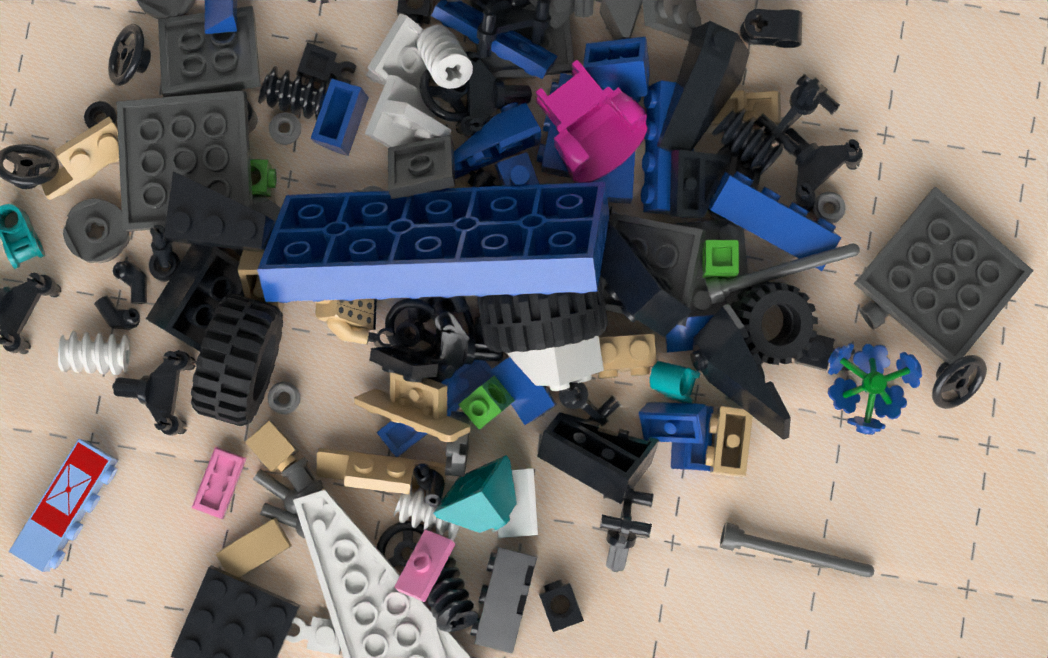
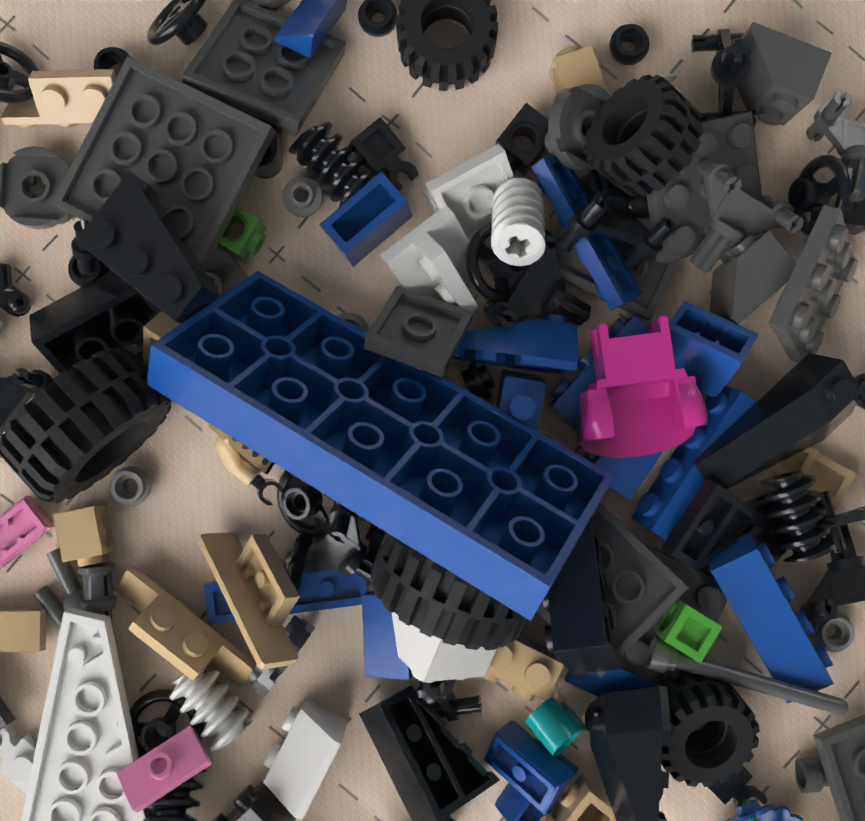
camera: 30 degrees right, 5 degrees up
(133, 277) = (48, 262): black arm -> none
(411, 363) = (277, 542): black plate -> none
(431, 482) = (227, 682): black arm -> none
(481, 498) = (265, 736): teal slope -> none
(486, 402) = (336, 632): bright green brick -> none

